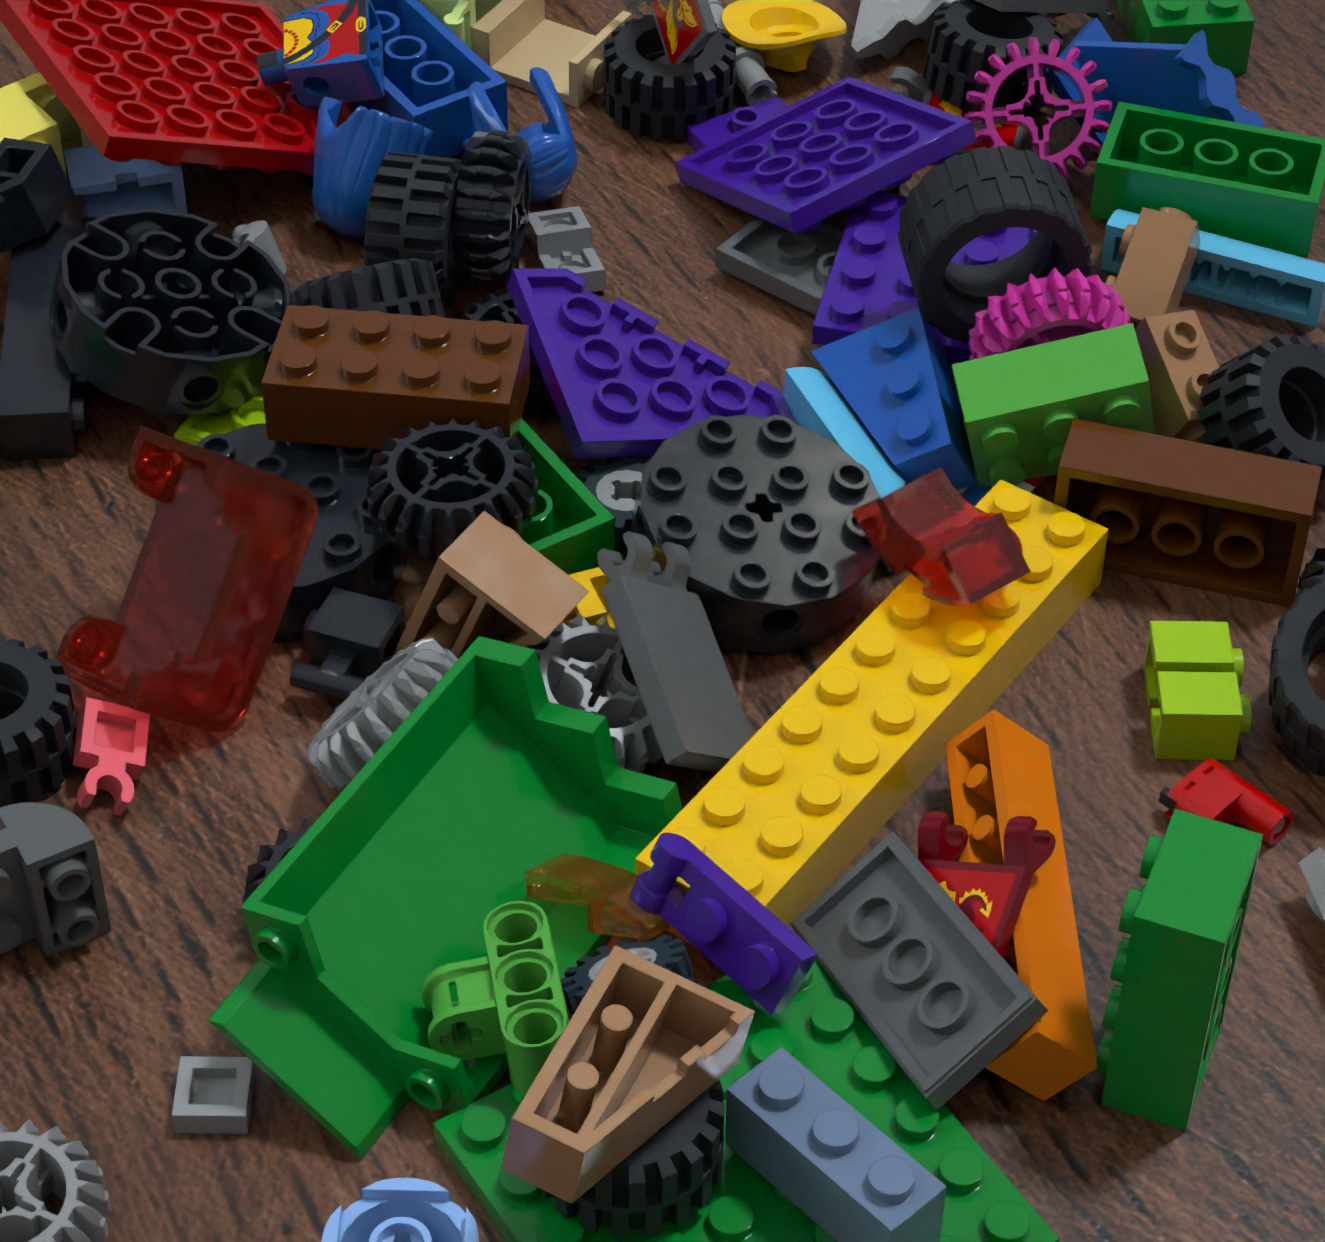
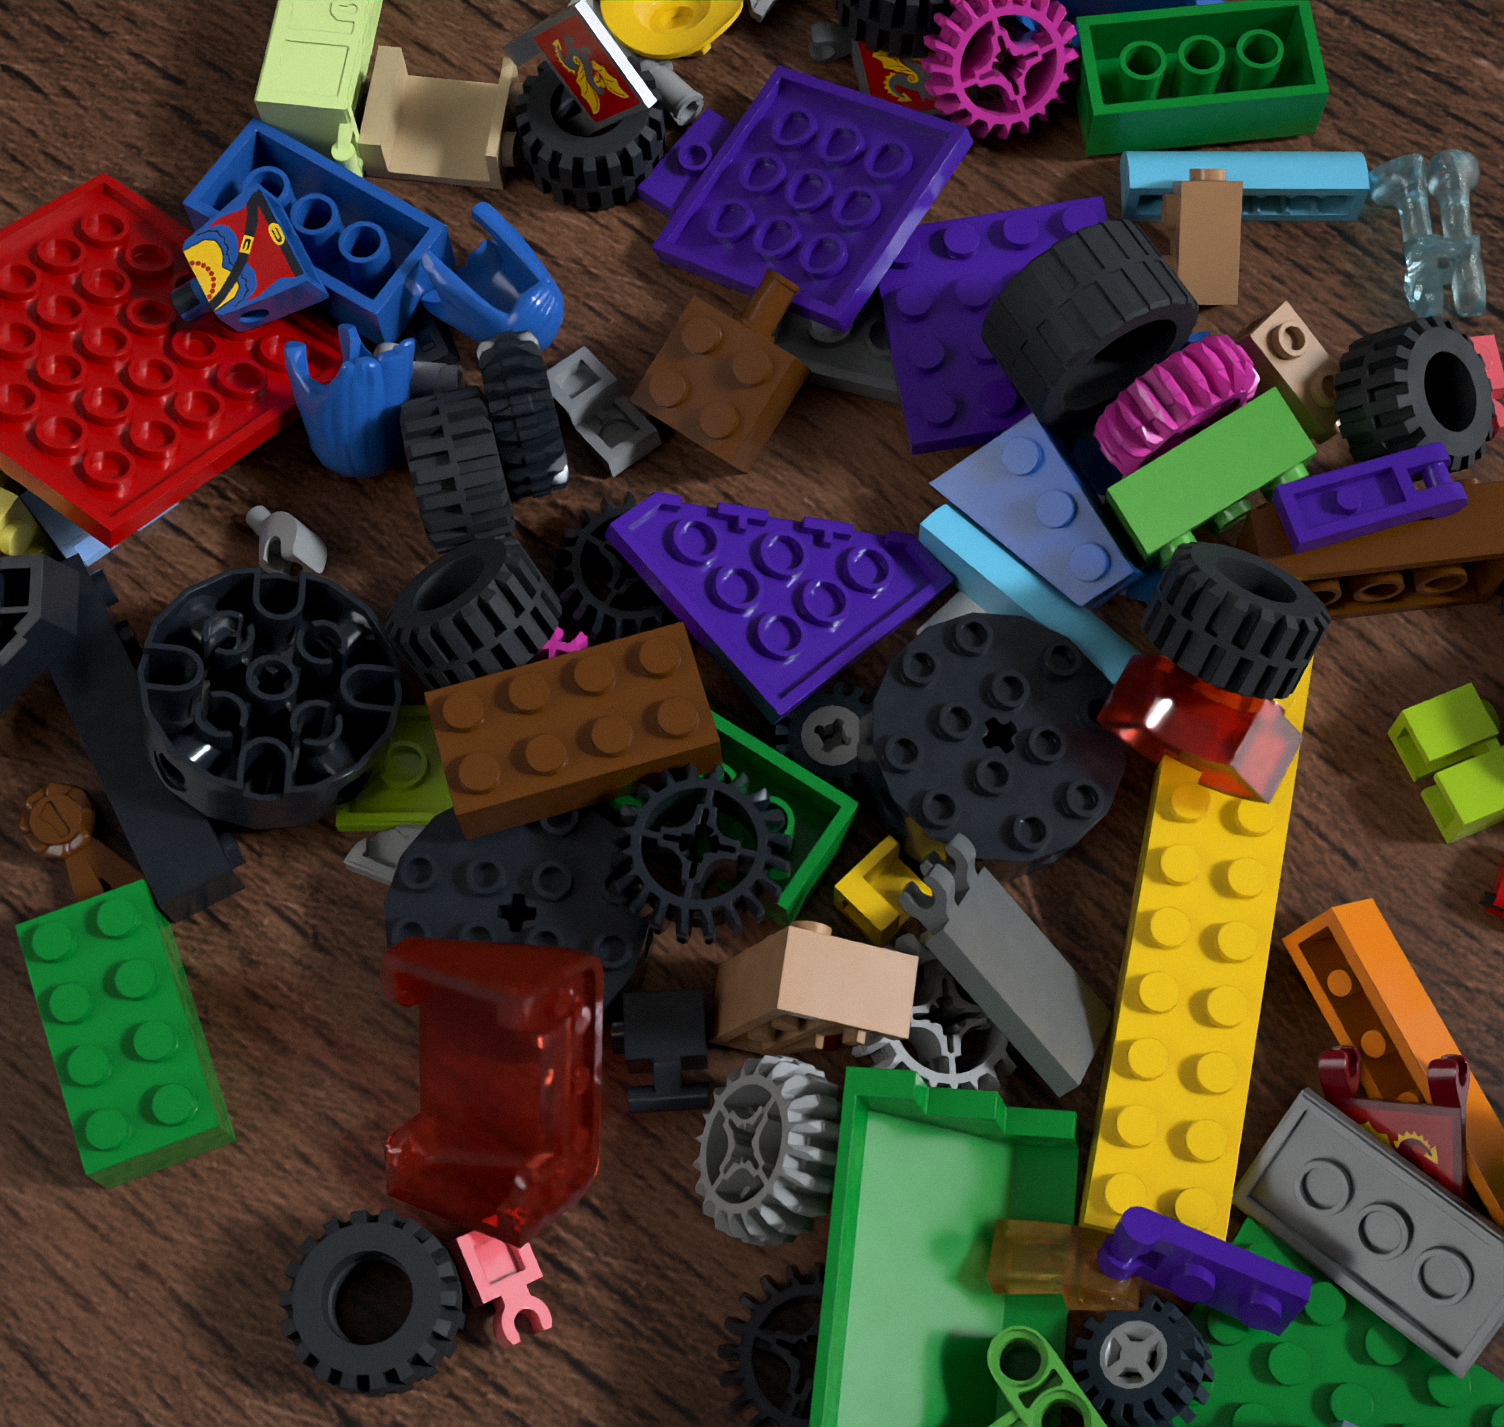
camera: 20 degrees left, 25 degrees up
(680, 241) = (725, 376): none -> reddish brown brick
(1005, 457) = (1235, 620): none -> black tyre
(1184, 428) = (1368, 497): none -> dark purple plate

